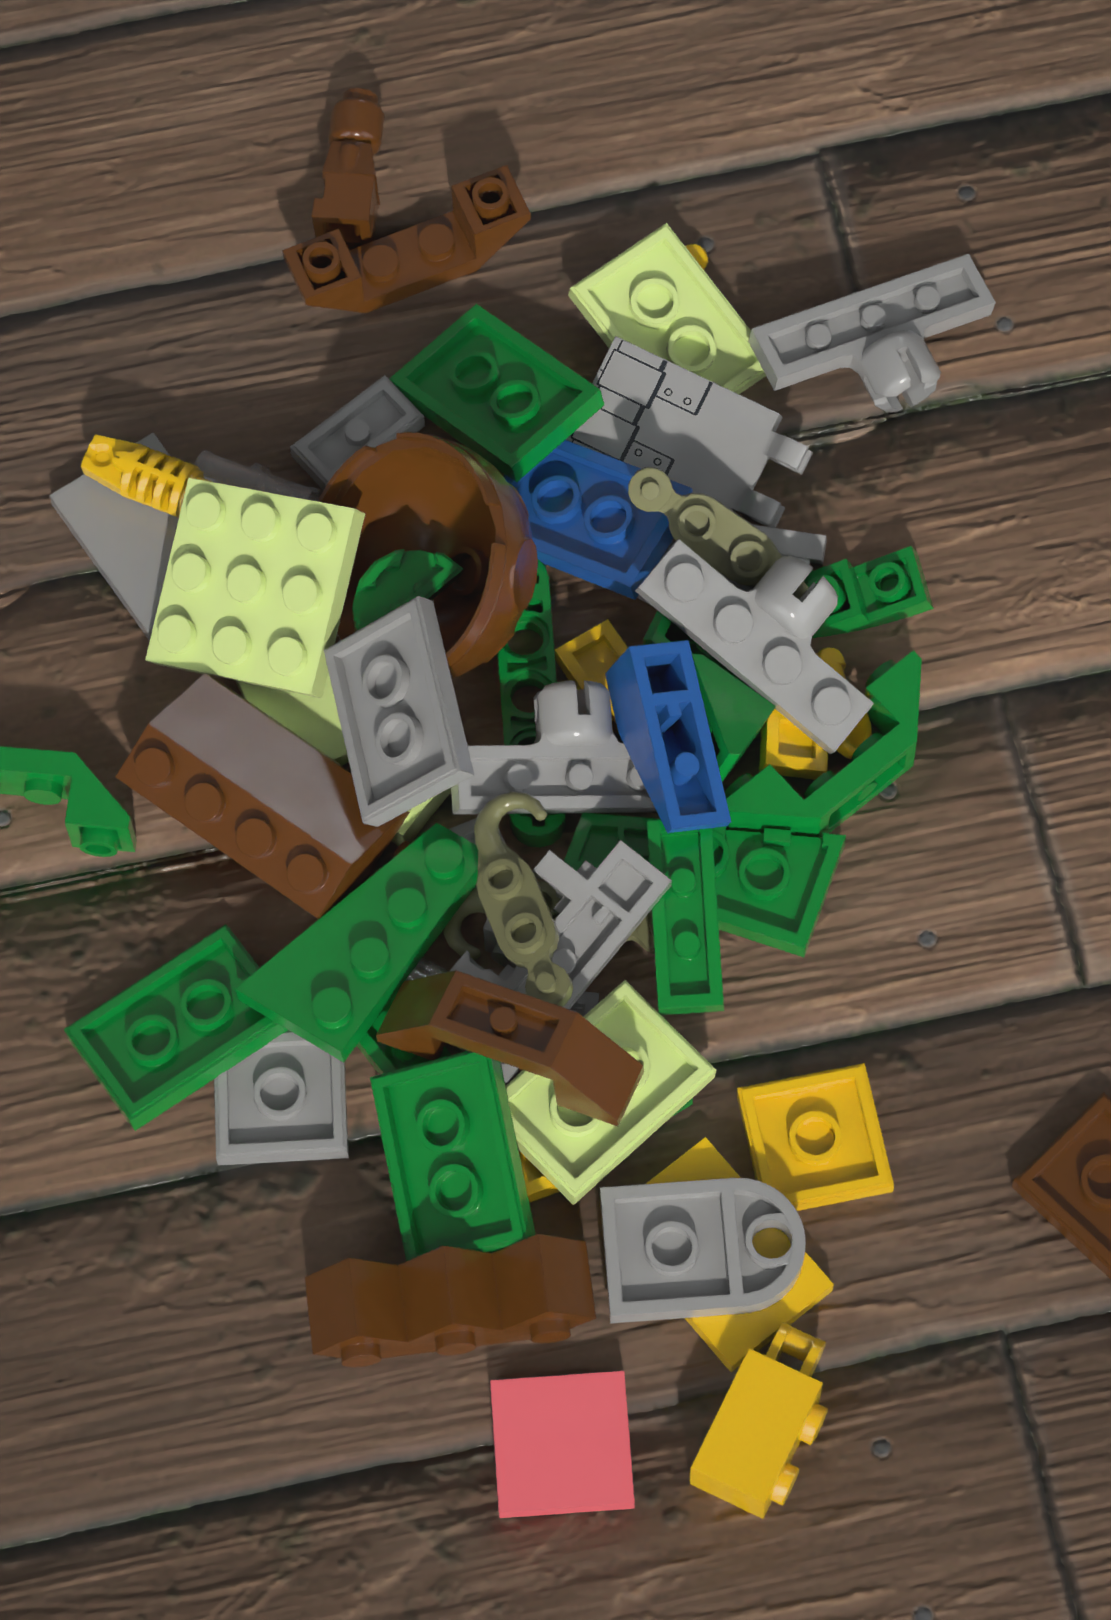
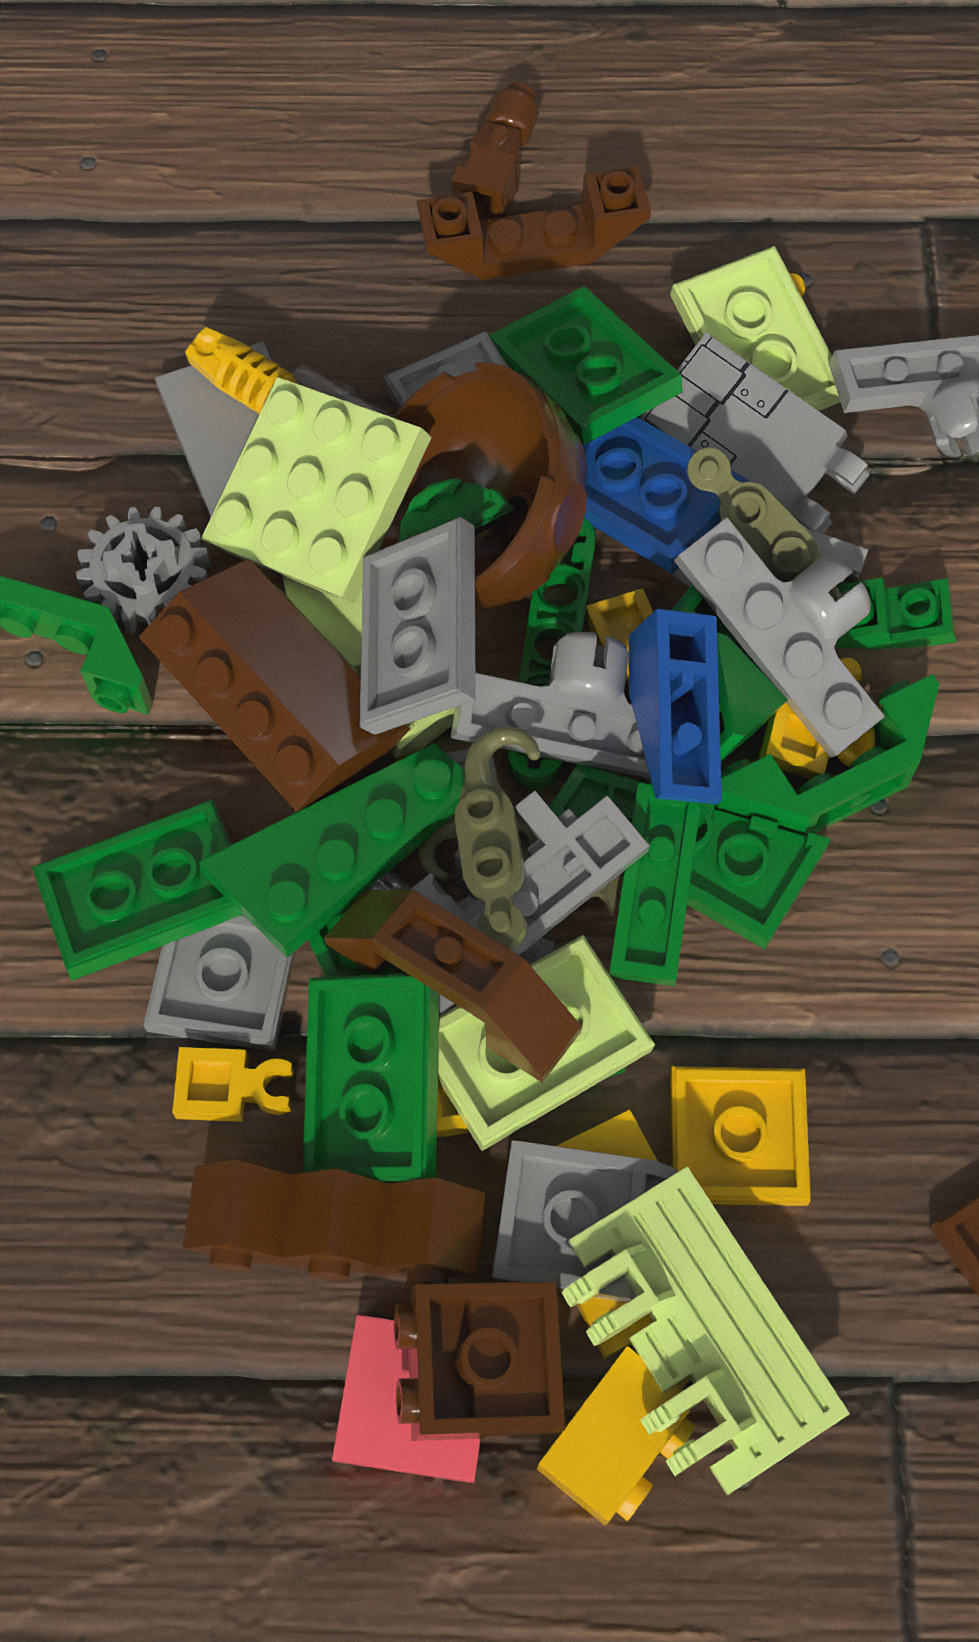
camera: 10 degrees right, 0 degrees up
(113, 681) = (114, 565): none -> light grey gear
(302, 1197) = (217, 1084): none -> yellow plate
(616, 1390) = (480, 1360): none -> reddish brown plate
(818, 1312) = (707, 1325): none -> yellowish green hinge

